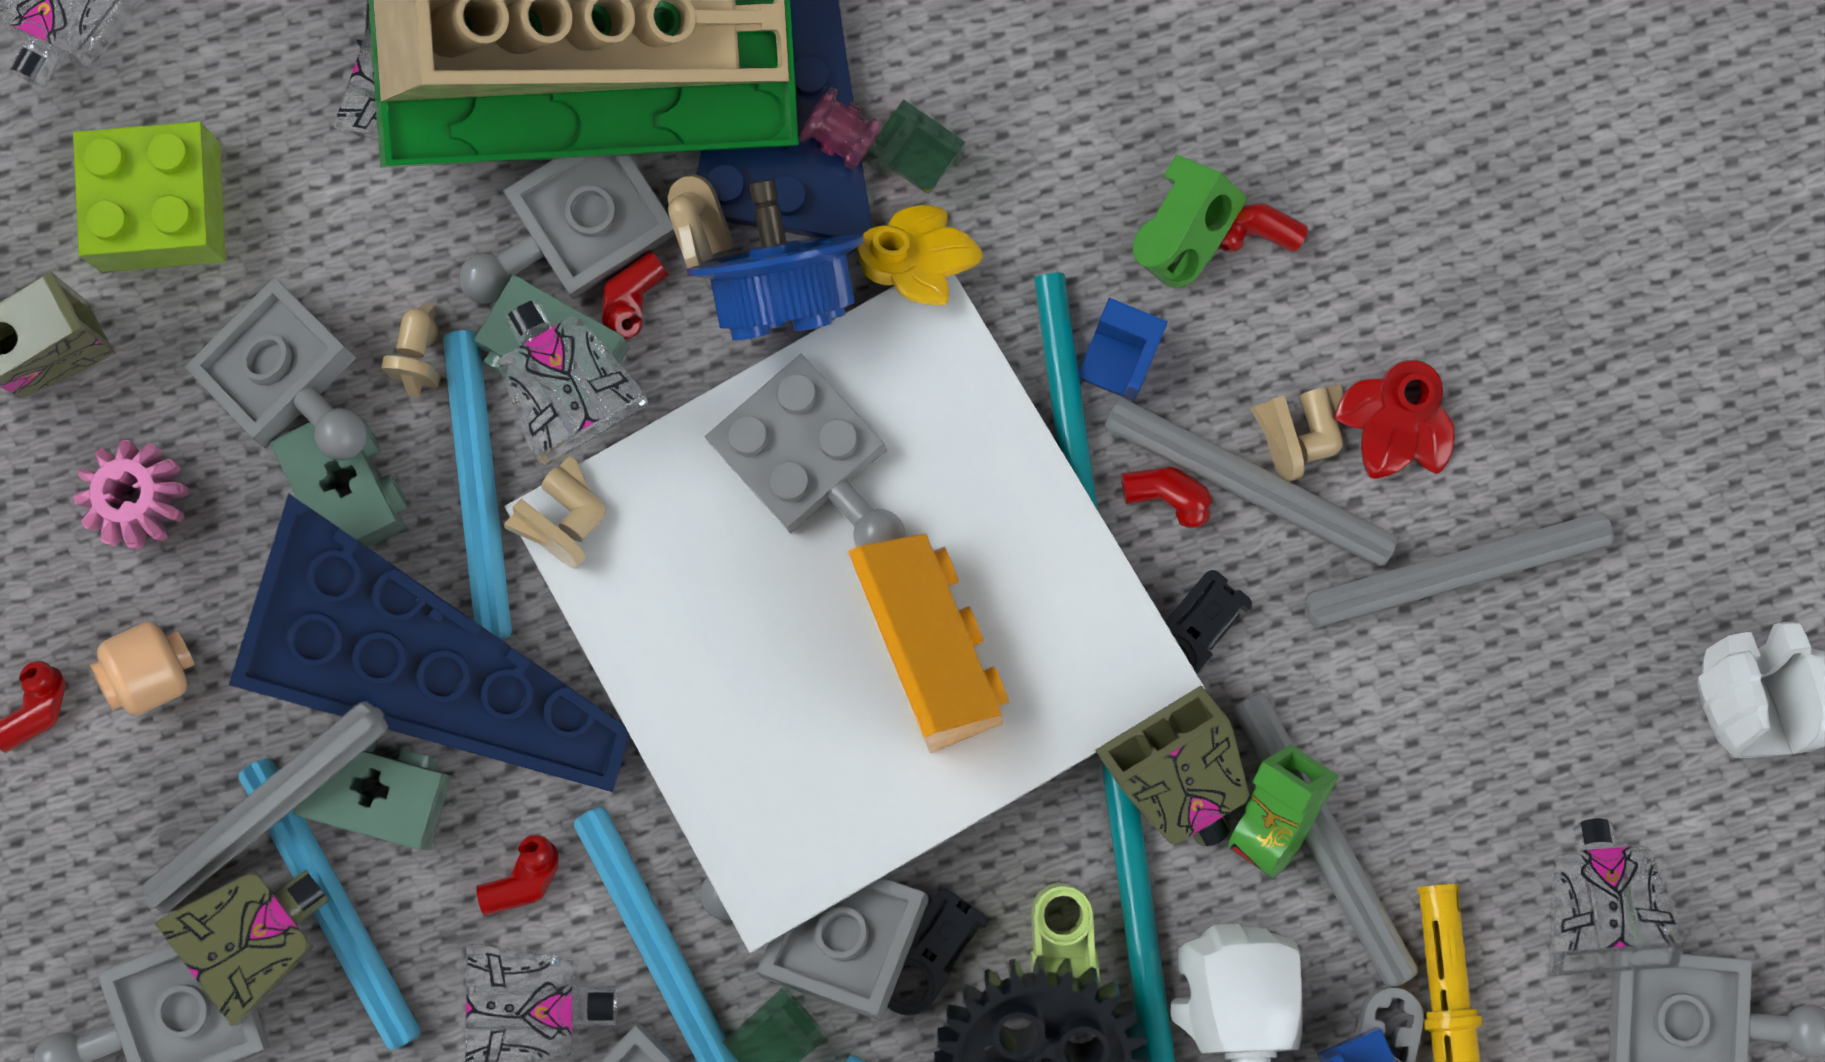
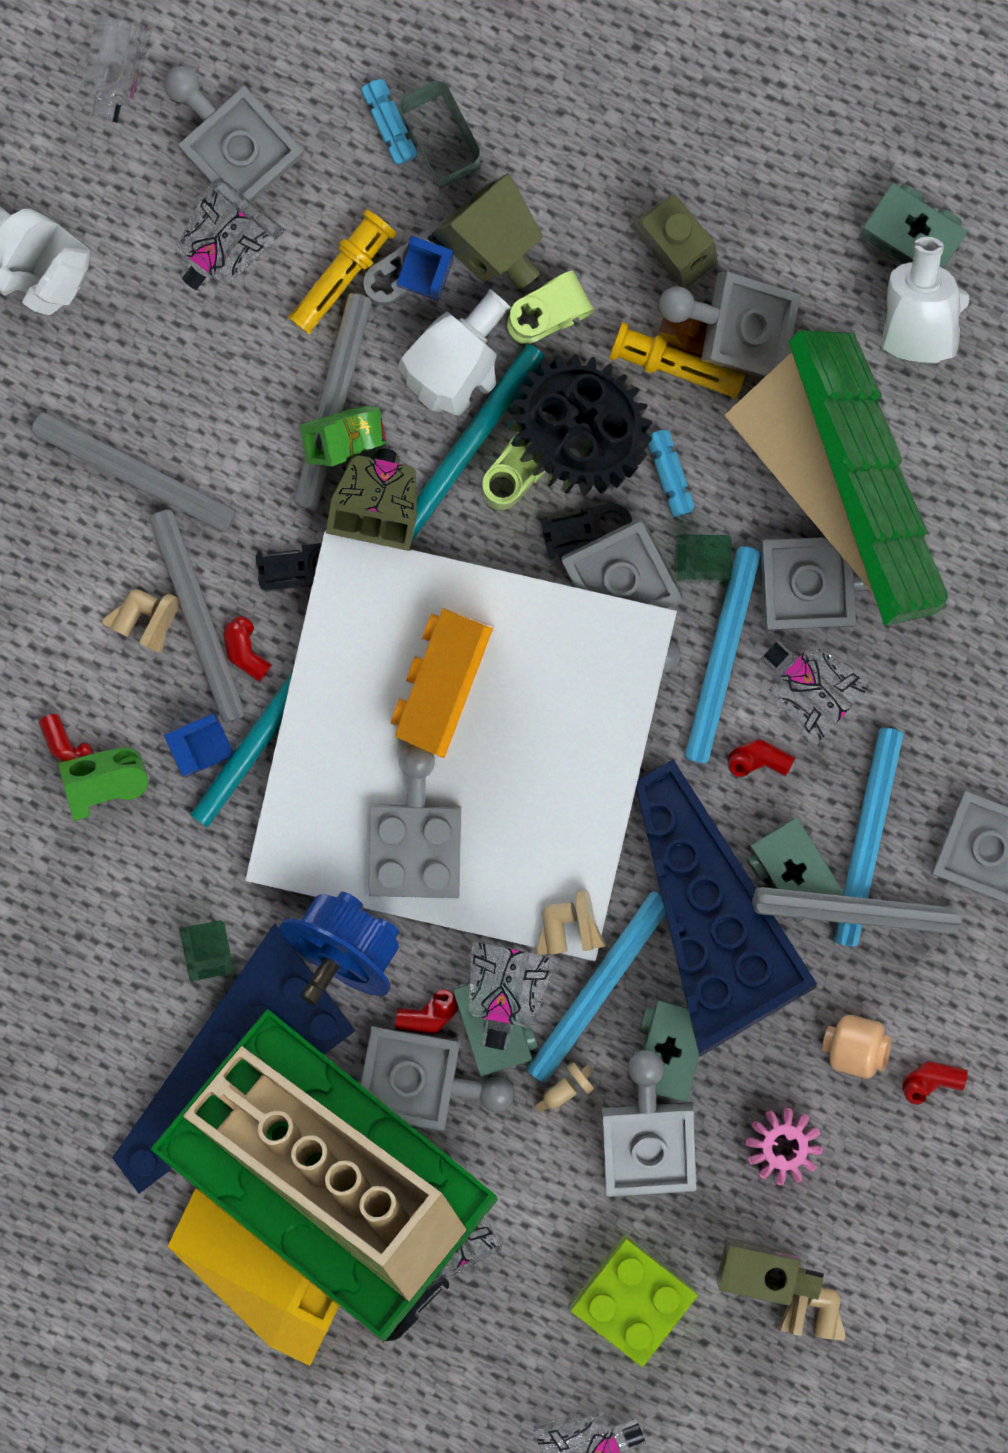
camera: 140 degrees left, 5 degrees up
(244, 939) = (924, 852): olive torso -> none
(697, 220) = (357, 1017): tan piece -> none
(840, 128) = (237, 997): clear pink bush -> none
(918, 254) = (253, 890): yellow plate -> none
(1394, 428) = (96, 573): red plate -> none

